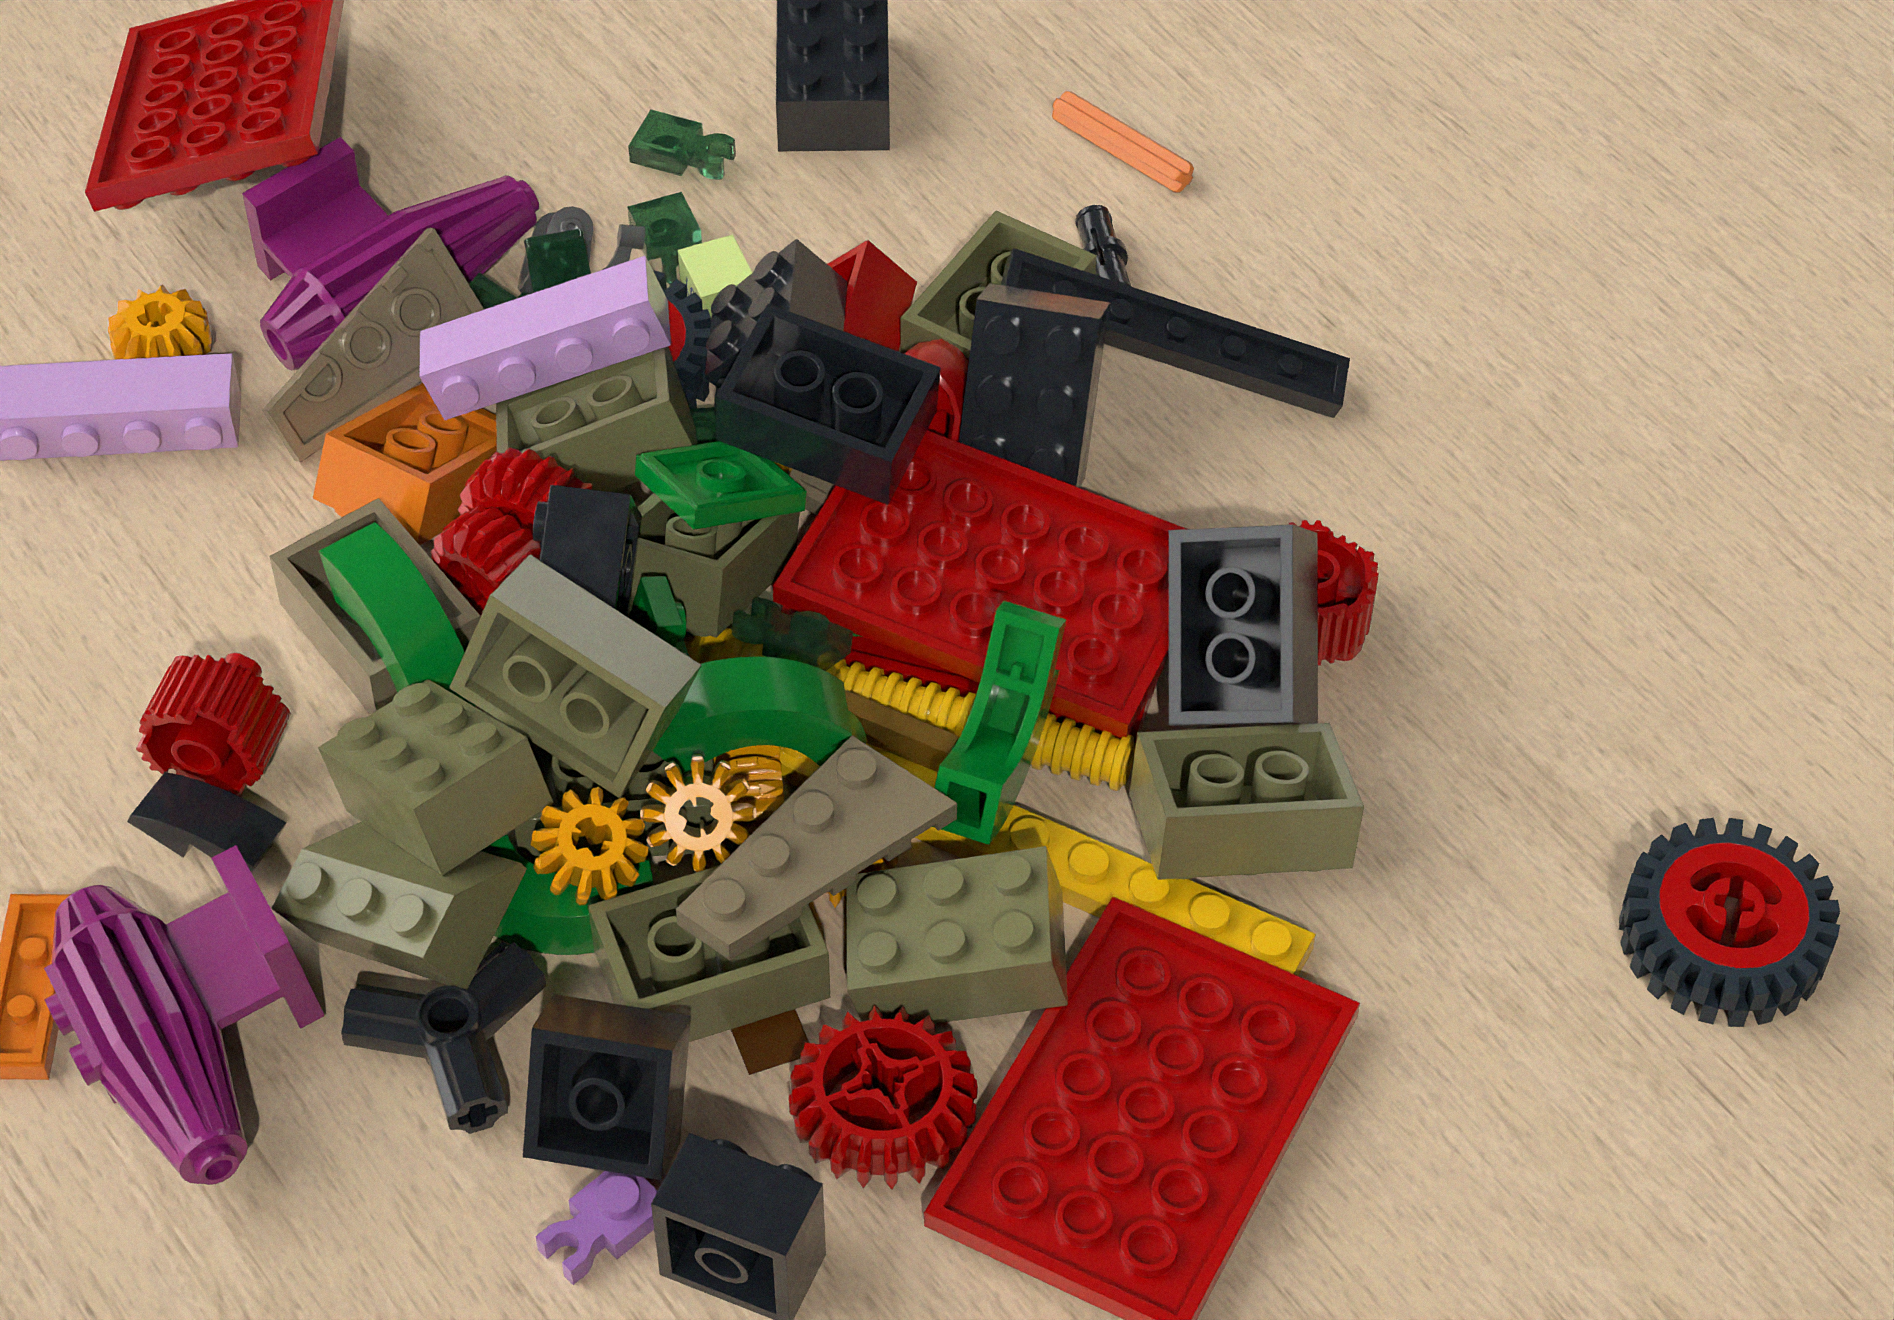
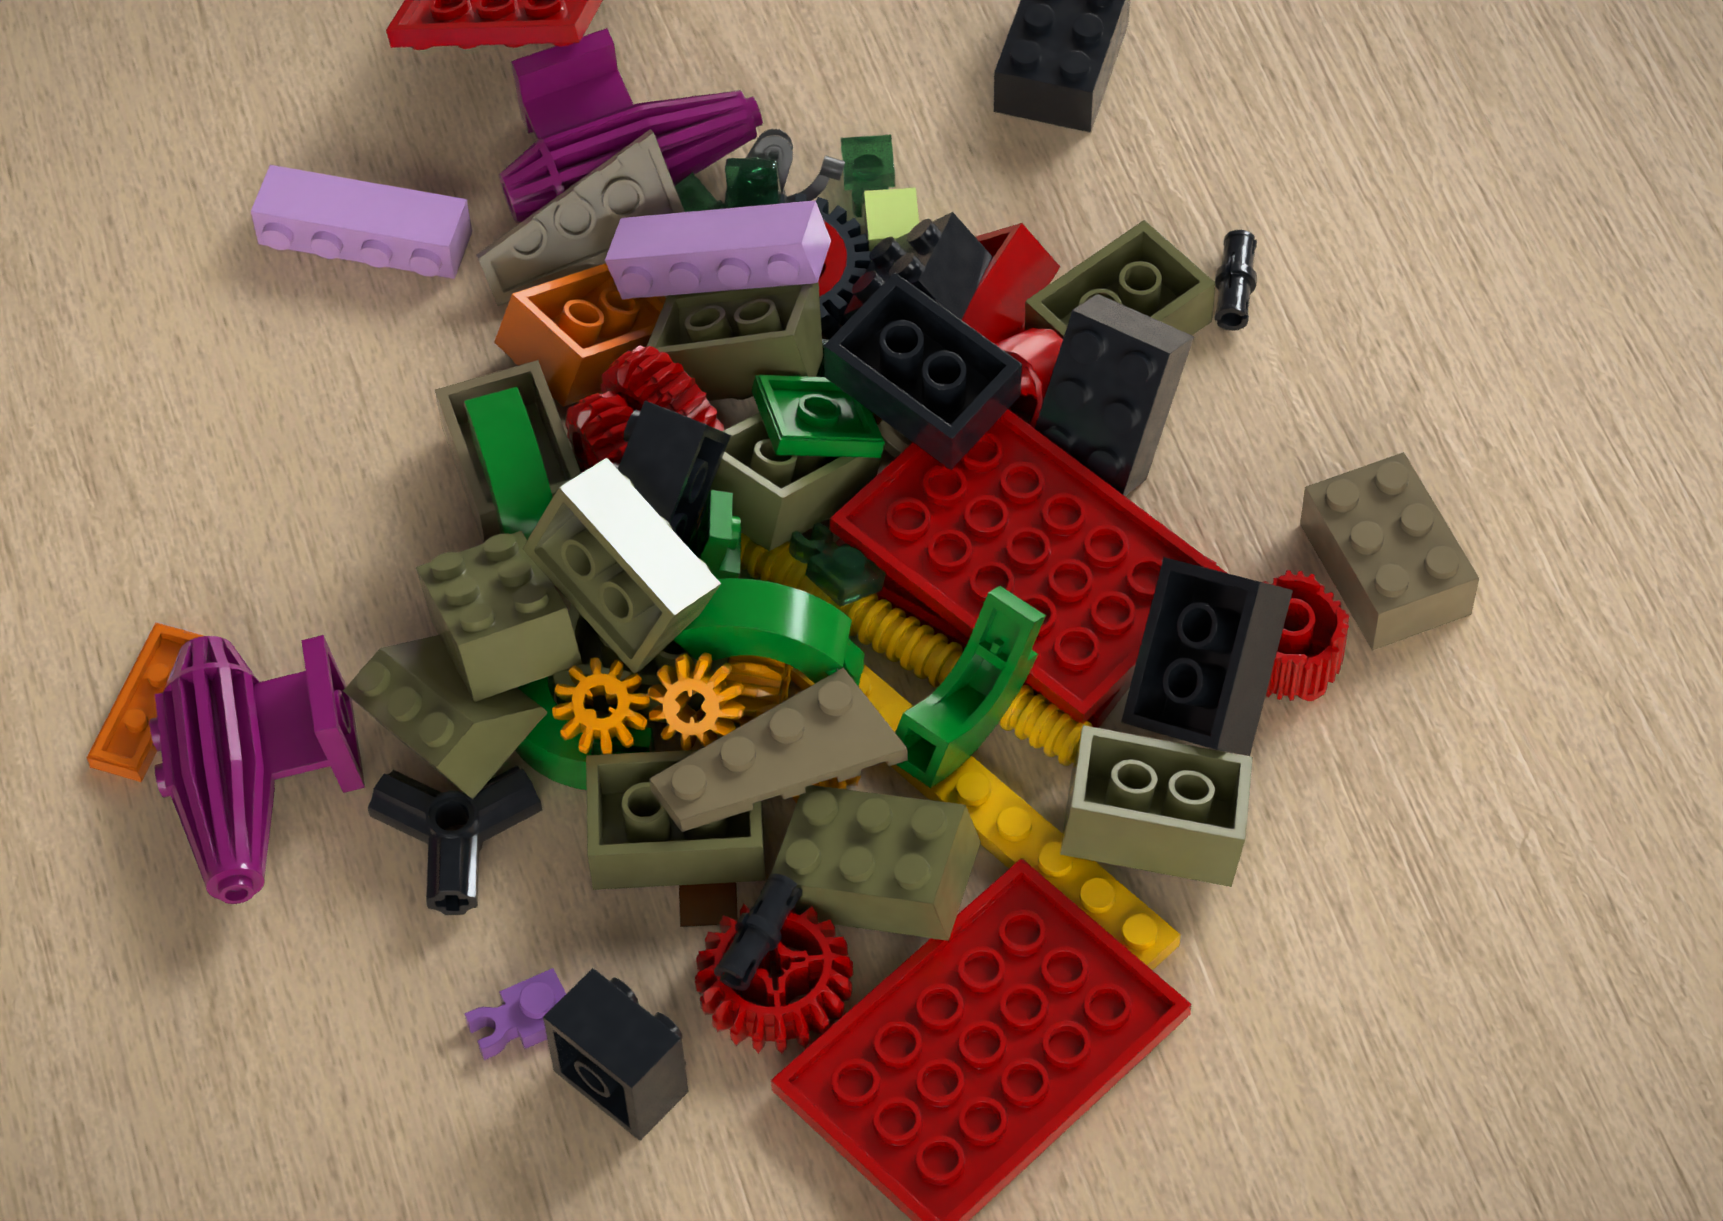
camera: 20 degrees right, 5 degrees up
(159, 326) = (420, 160): light orange gear -> none
(198, 814) = (325, 600): black slope -> none
(213, 721) = (349, 521): red brick -> none
(606, 1086) = (551, 907): black brick -> none
(676, 142) = (905, 86): clear green plate -> none
(857, 1048) = (758, 932): none -> black pin
(901, 733) = (892, 666): pearl gold tile -> none
(1123, 141) = (1295, 173): orange axle -> none
(1195, 337) = (1268, 374): black plate -> none
(1377, 483) = (1388, 551): none -> dark tan brick
(1779, 924) = (1567, 1052): wheel -> none

